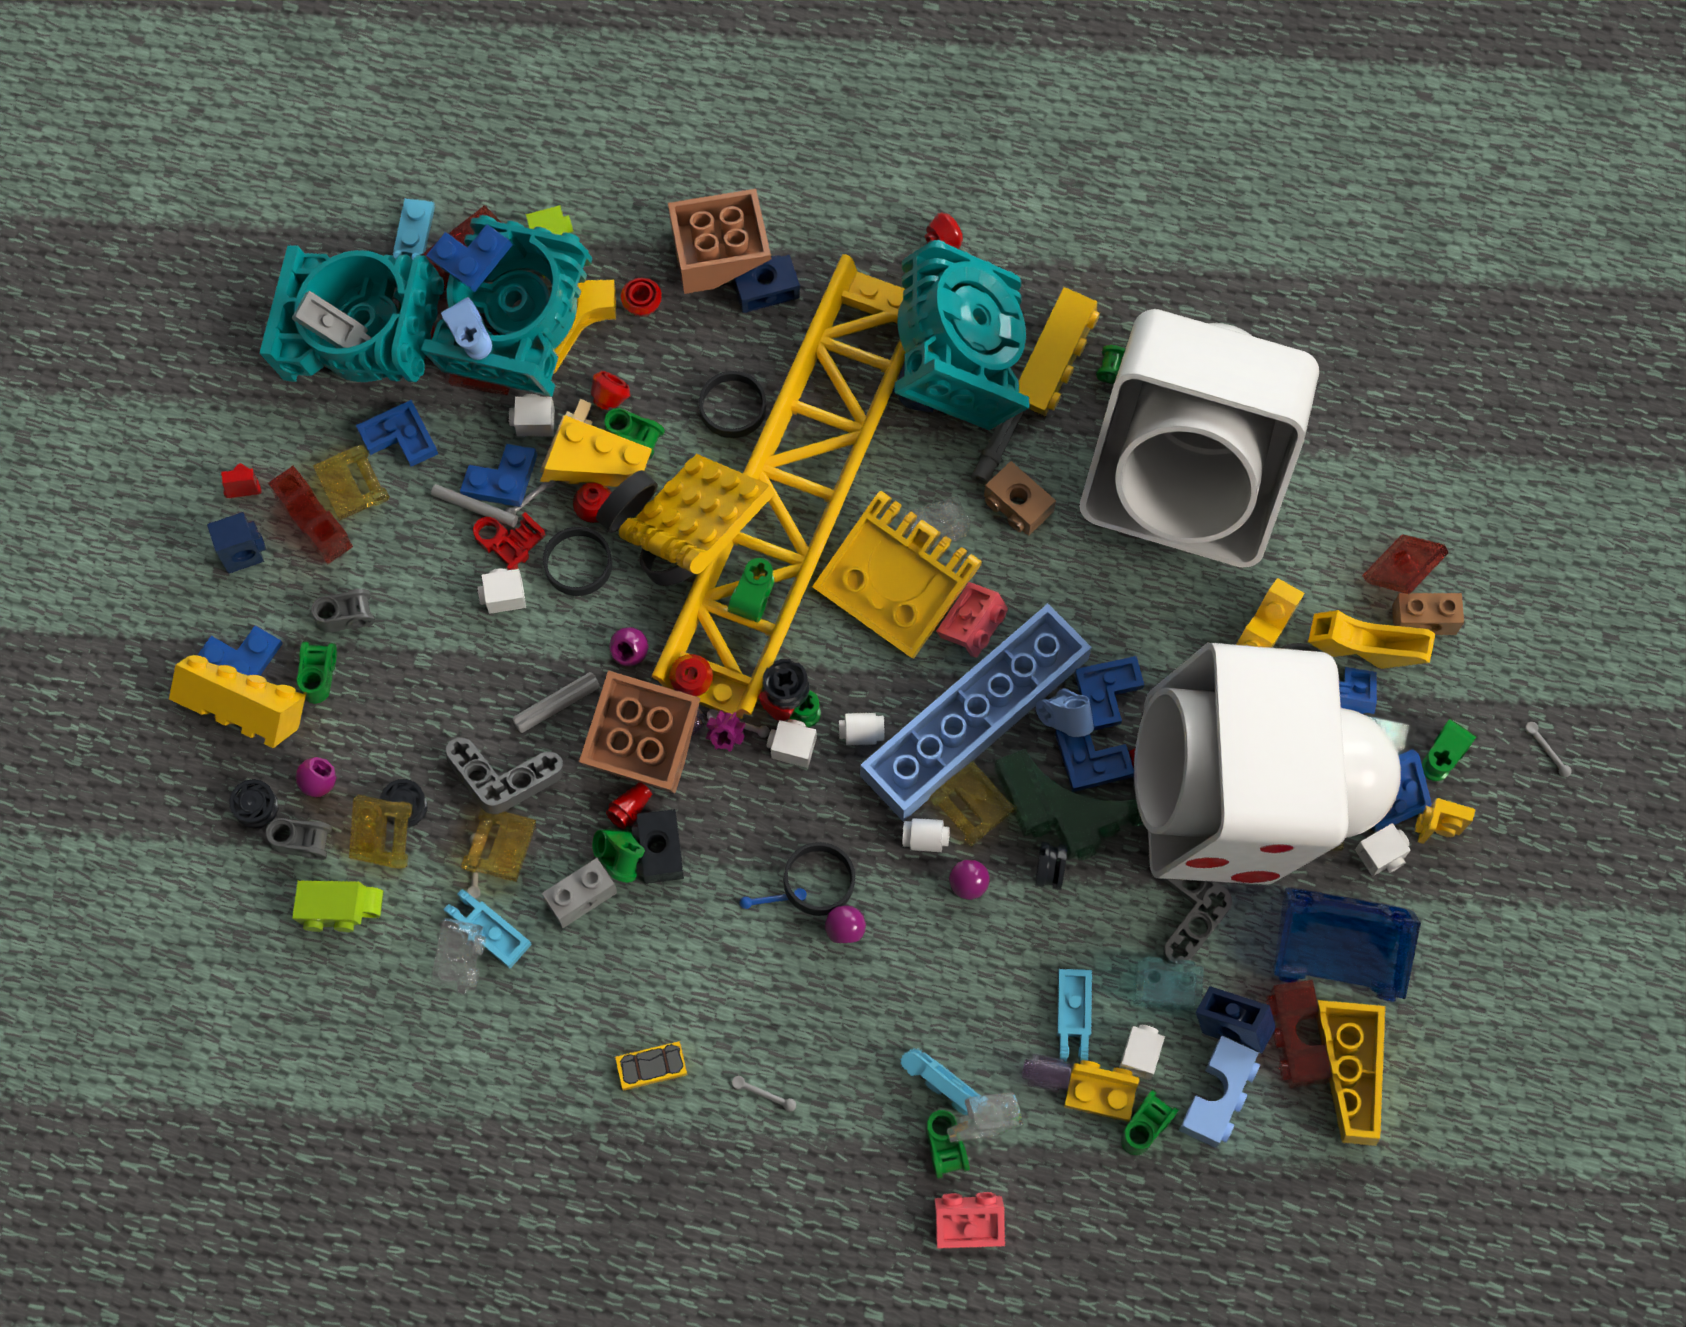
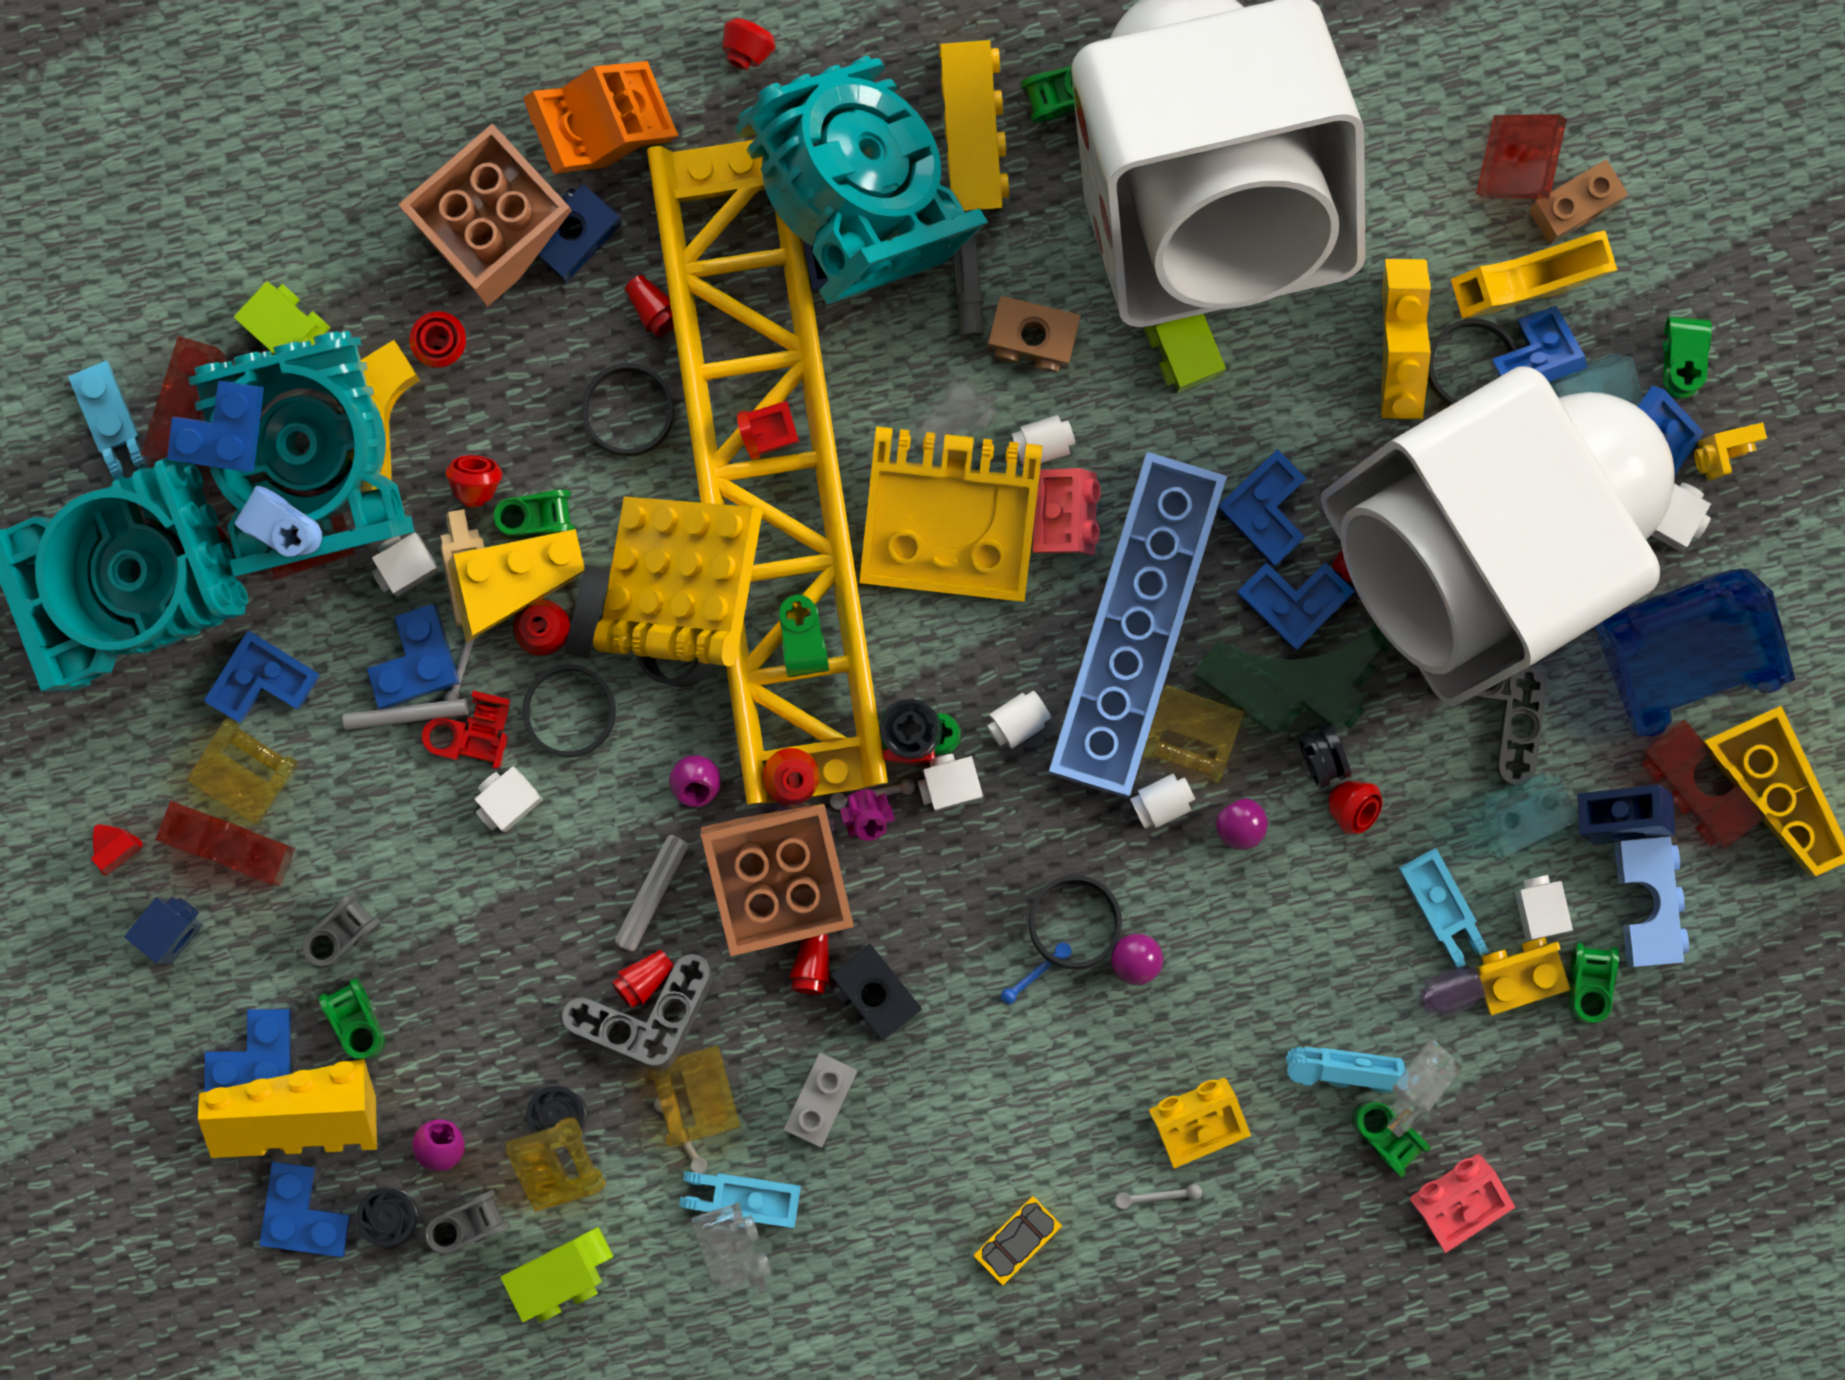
camera: 30 degrees left, 15 degrees up
(192, 771) = (291, 1223): none -> blue plate
(329, 322) = (106, 608): light grey hinge -> none
(514, 750) = (642, 978): none -> red cone
(617, 853) = (838, 1031): green piece -> none
(785, 350) = (651, 305): none -> red cone
(810, 457) = (767, 429): none -> red tile
(821, 1058) = (1199, 1121): none -> yellow bracket
(825, 223) = (600, 117): none -> orange bracket
(991, 569) = (1050, 433): none -> white brick
(1053, 911) = (1355, 805): none -> red cone
(1067, 713) = (1241, 567): light blue piece -> none
(1114, 561) = (1187, 351): none -> lime hinge
(1532, 729) = (1764, 269): light grey hinge -> none

